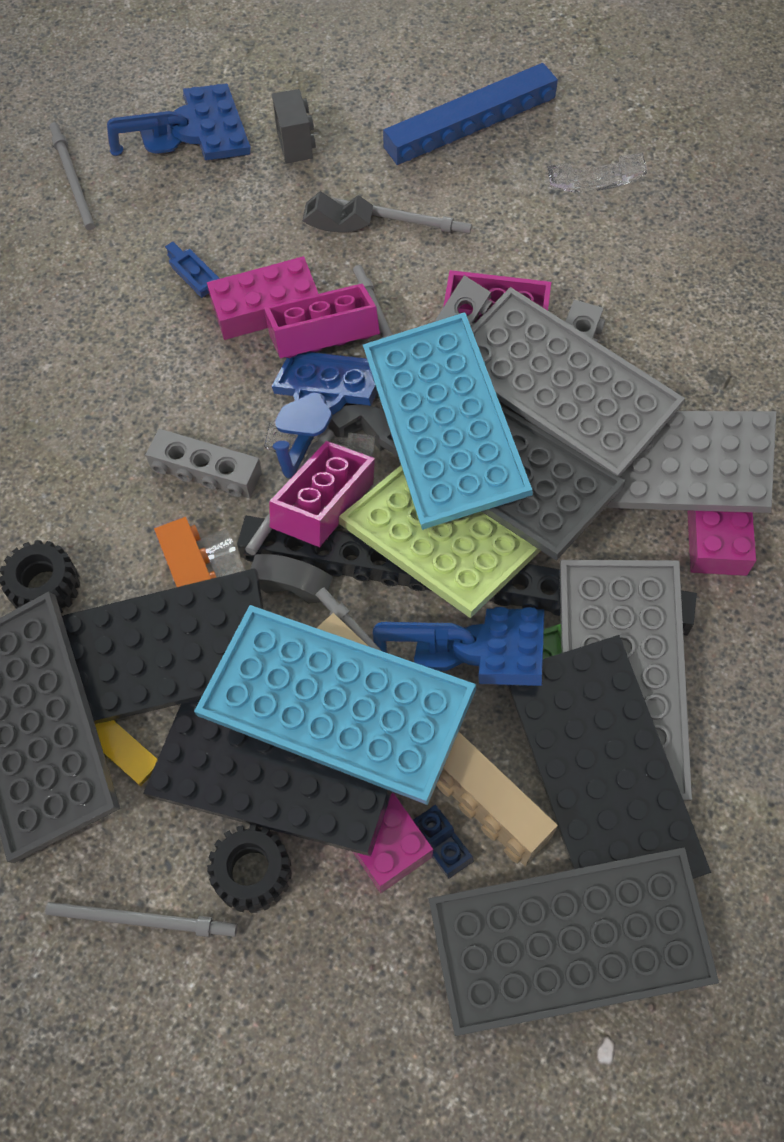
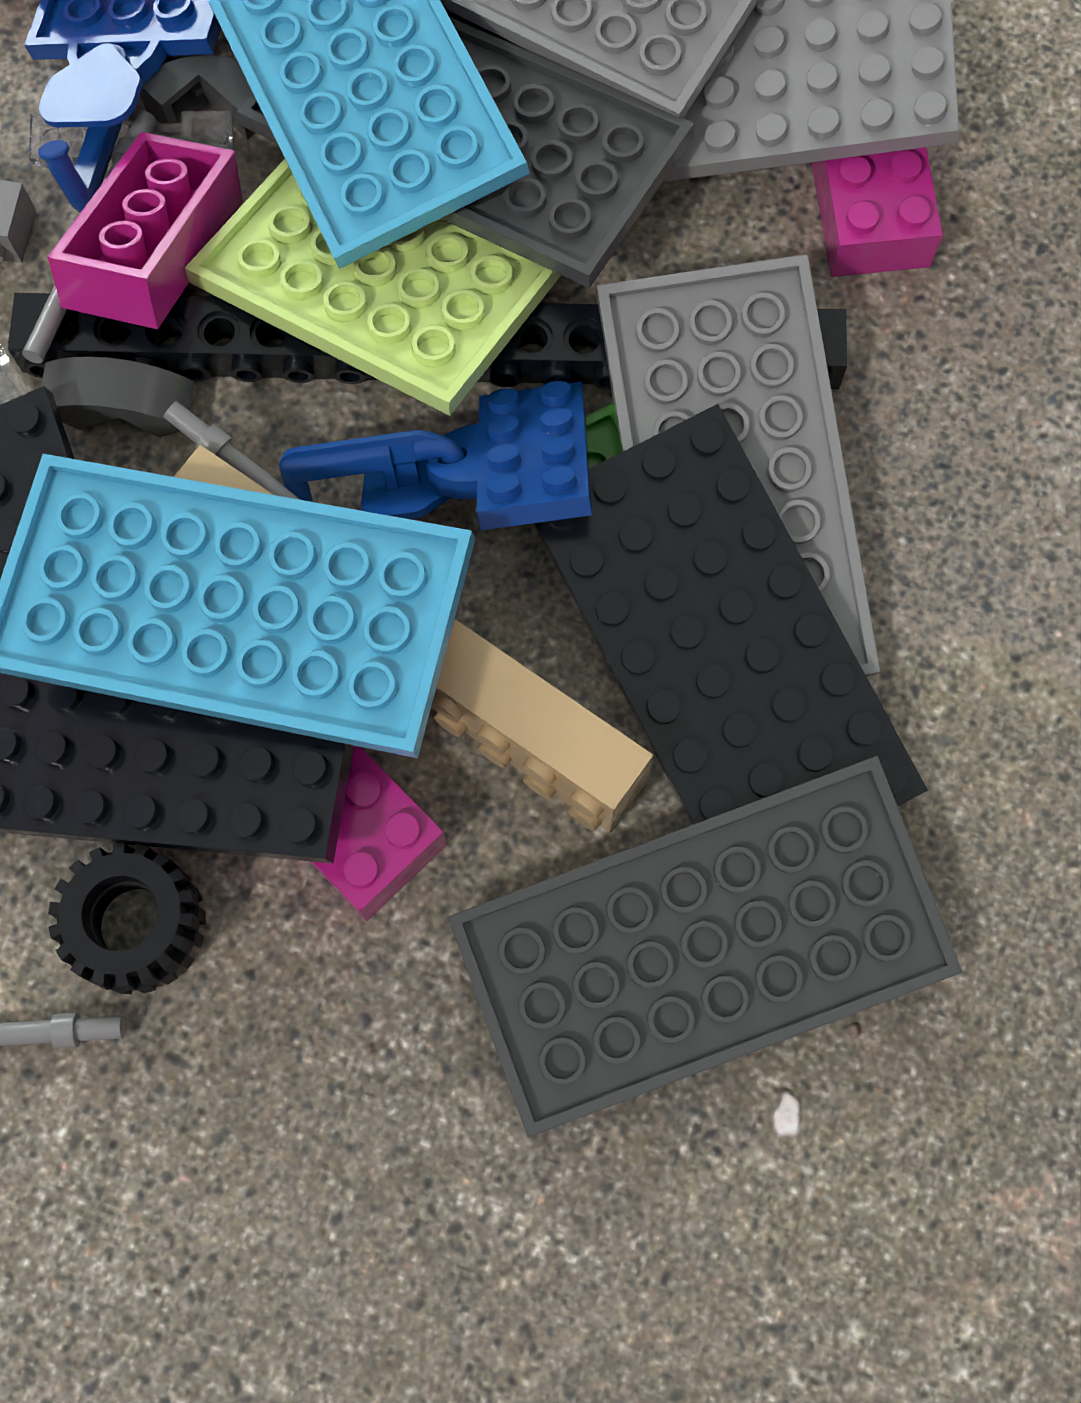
camera: 10 degrees left, 10 degrees up
(447, 848) = (465, 818): dark blue slope -> none

